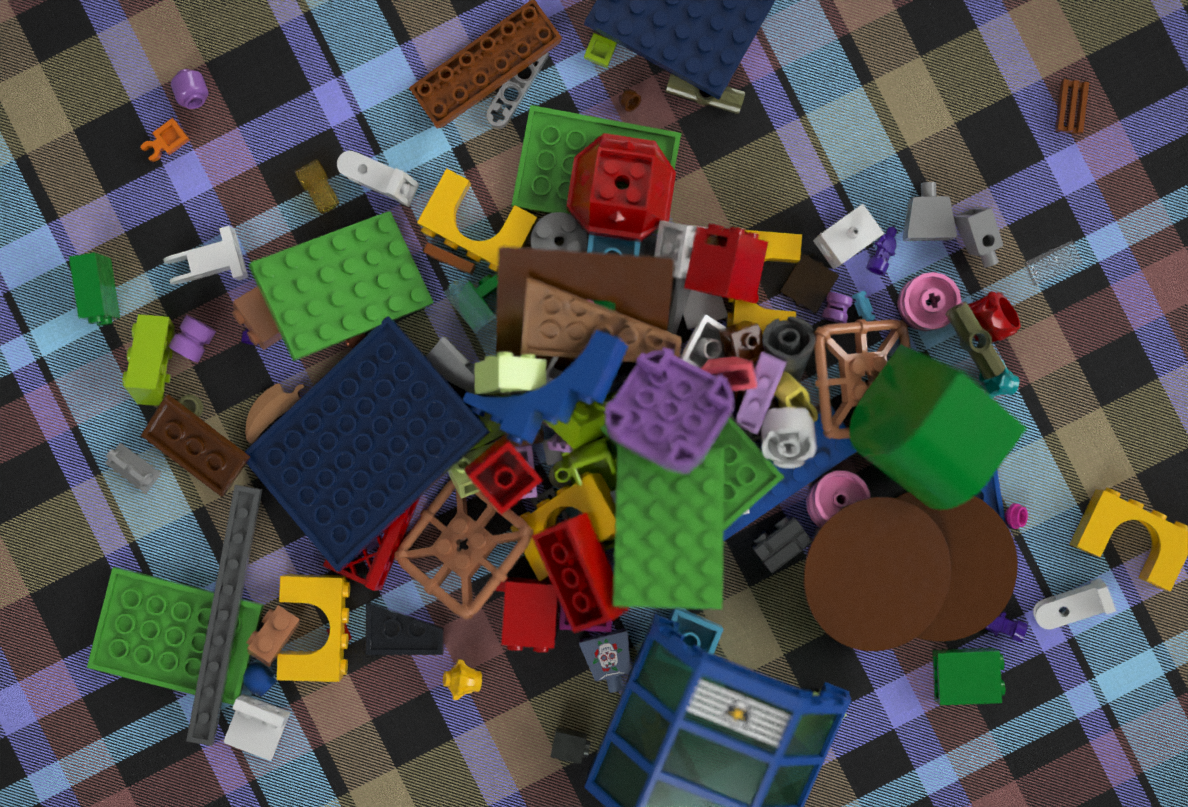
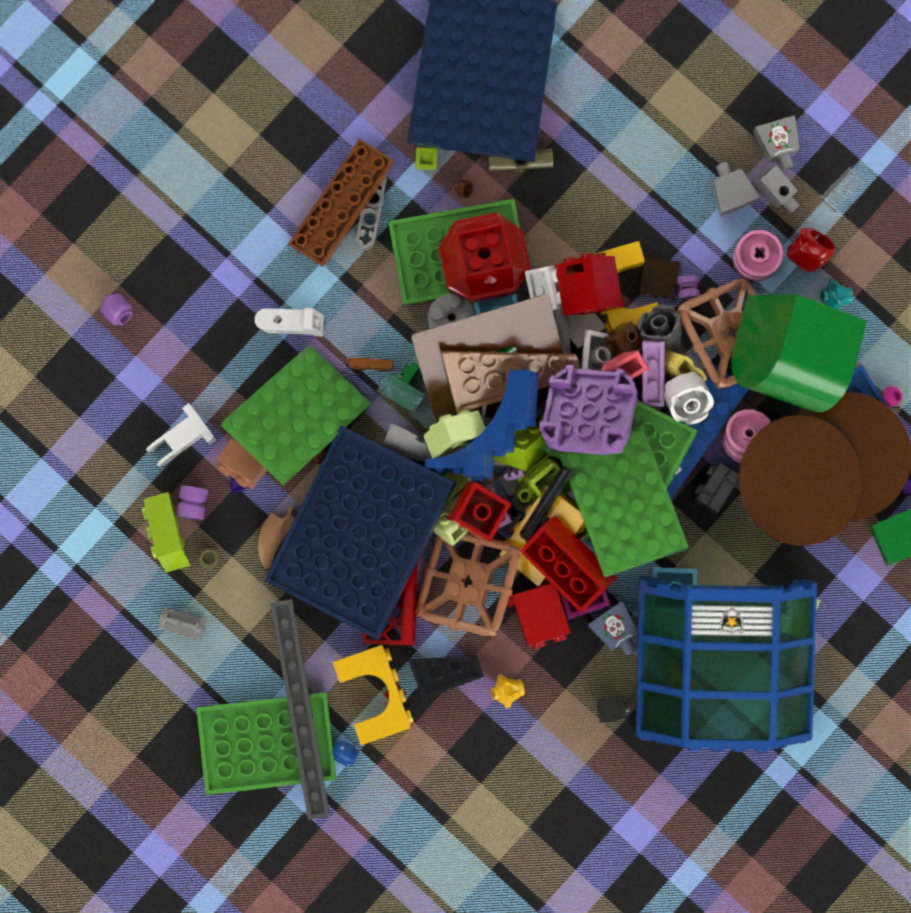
camera: 15 degrees left, 5 degrees down
(94, 288) = (102, 491): green brick -> none
(168, 138) = (114, 354): orange plate -> none
(195, 445) = (225, 586): reddish brown tile -> none
(256, 727) = (357, 792): white bracket -> none
(273, 636) = (345, 711): nougat brick -> none
(314, 180) = (241, 343): clear yellow piece -> none
(440, 220) = (351, 336): yellow arch -> none
(581, 494) = (546, 503): none -> black axle
(848, 236) = (675, 229): white piece -> none
(863, 306) = (708, 278): medium azure piece -> none
(886, 247) = (708, 226): dark purple piece -> none
(983, 354) = (815, 279): olive piece -> none
(1003, 180) = (778, 140): none -> light grey torso
(1075, 85) = (797, 48): dark orange tile -> none

